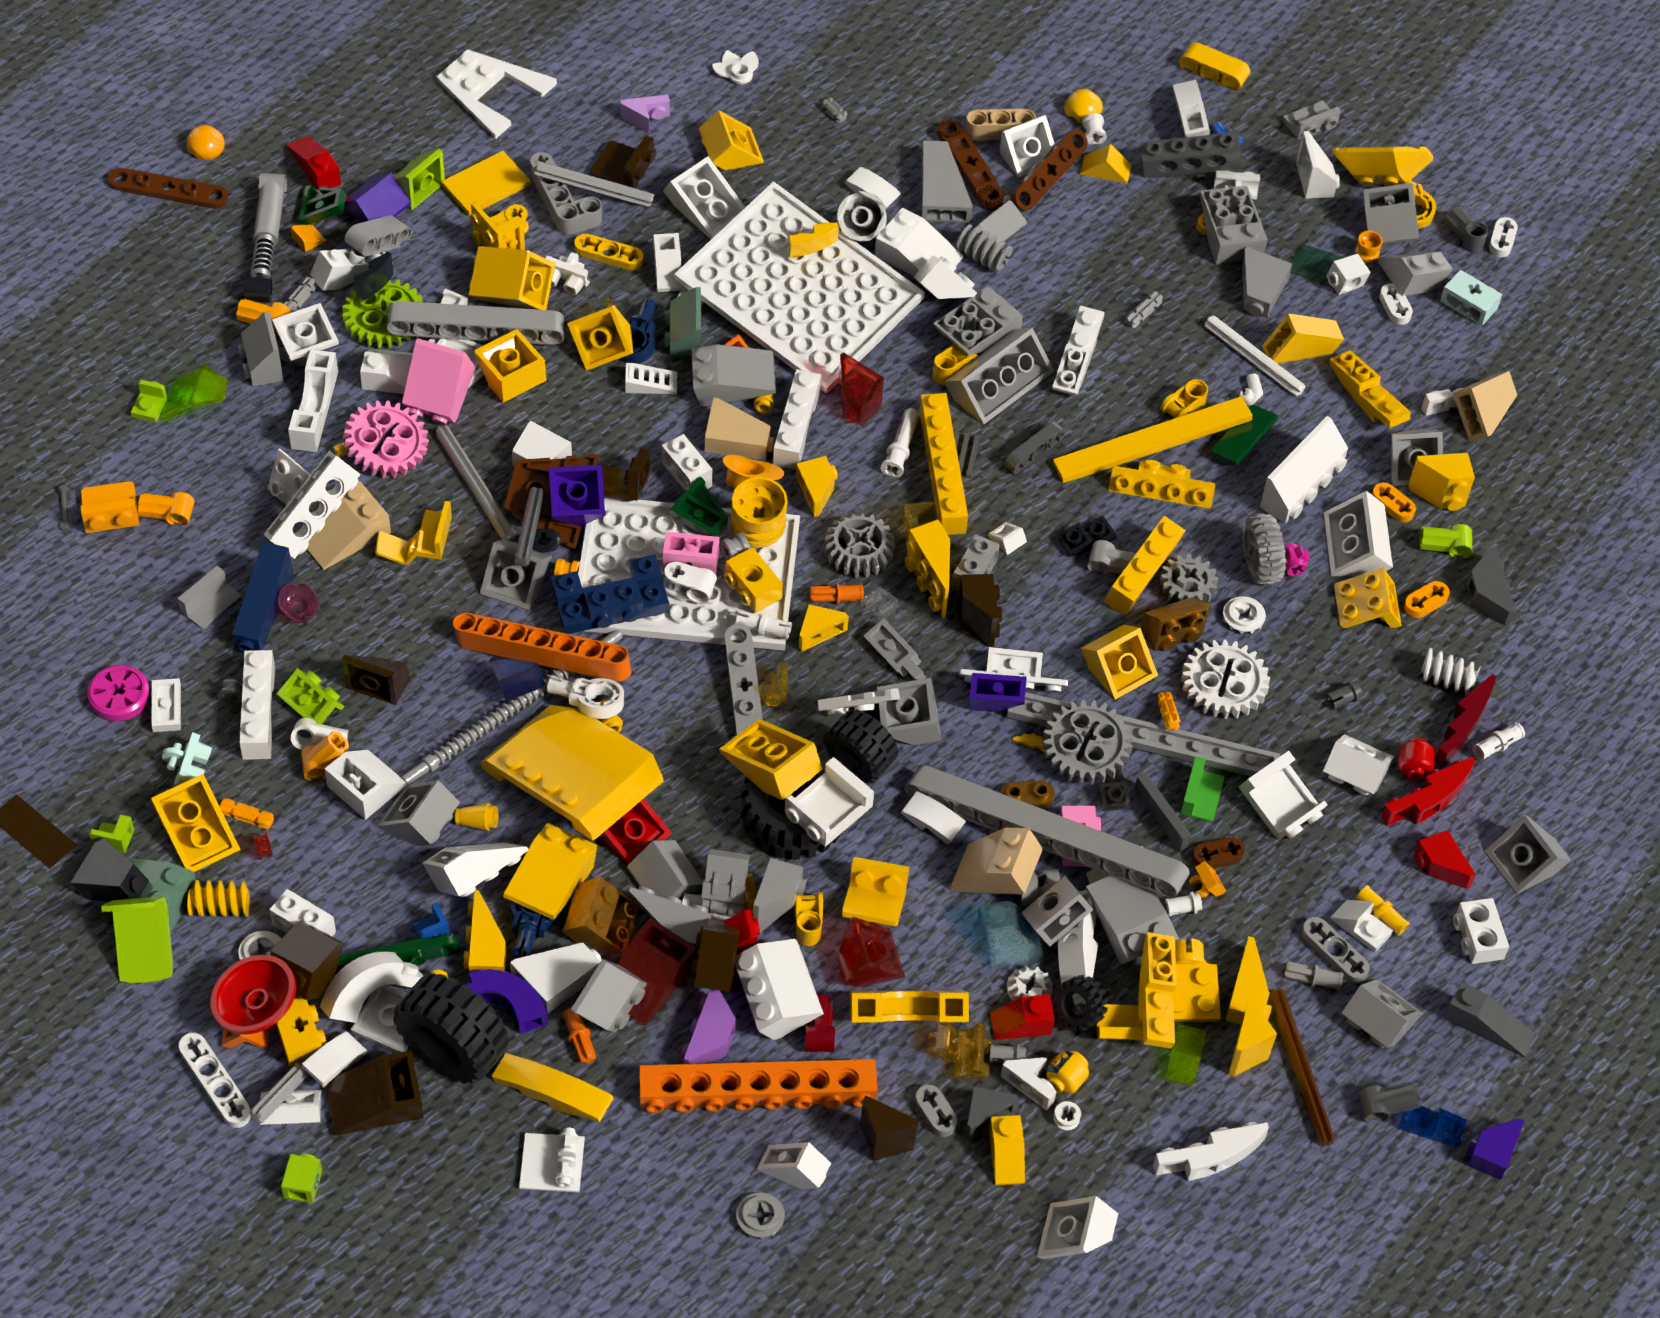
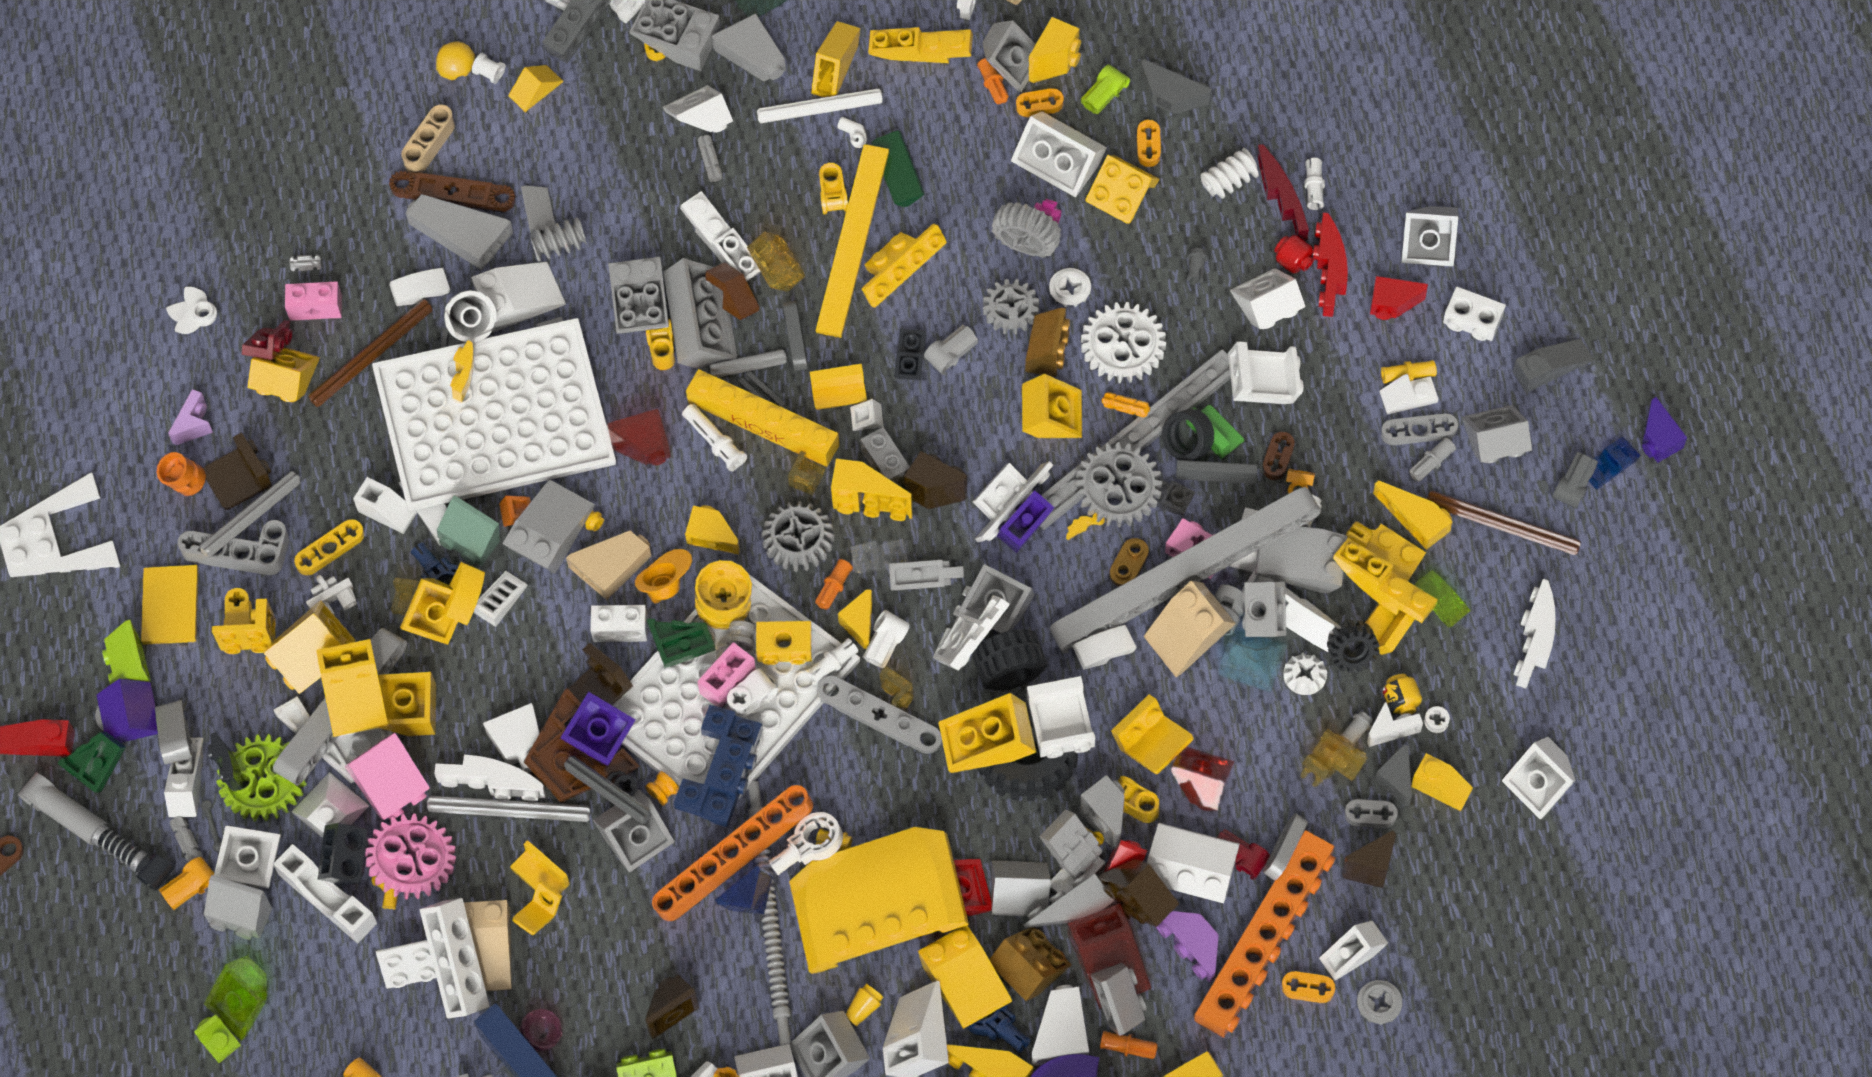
camera: 50 degrees left, 10 degrees up
(306, 236) = (119, 795): light orange slope -> none
(348, 383) = (336, 852): none -> black brick
(488, 311) = (351, 687): none -> yellow slope
(492, 454) = (500, 777): none -> white slope
(593, 126) = (181, 474): none -> orange wheel
(630, 348) = (465, 593): none -> yellow slope
(704, 197) = (334, 430): white slope -> none
(727, 1151) = (1308, 980): none -> light orange beam
(745, 118) = (268, 342): none -> dark red bracket
(796, 189) = (370, 353): none -> reddish brown axle
(796, 419) = (620, 490): white arch -> none
(803, 128) = (313, 301): none -> bright pink brick
(818, 653) = (888, 632): none -> white piece
(835, 1051) = (1285, 846): none -> light grey beam
(909, 1005) = (1255, 798): yellow arch -> none
(942, 281) = (575, 294): white slope -> none
(984, 430) = (748, 363): none -> light grey axle
(1016, 501) = (838, 386): none -> yellow panel
(1023, 1018) = (1334, 696): red slope -> none
(1026, 145) = (473, 133): white slope -> none
(1038, 383) = (737, 295): none -> reddish brown slope
(1059, 160) = (507, 133): reddish brown piece -> none
(1087, 396) = (776, 261): none -> clear yellow brick
(1144, 565) = (987, 350): yellow arch -> none
(1177, 280) = (701, 109): none -> white slope
(1186, 774) = (1171, 437): none -> black tyre
(1253, 1041) = (1464, 542): yellow slope -> none
(1304, 472) = (971, 149): white slope -> none
(1382, 459) = (993, 81): none -> orange axle

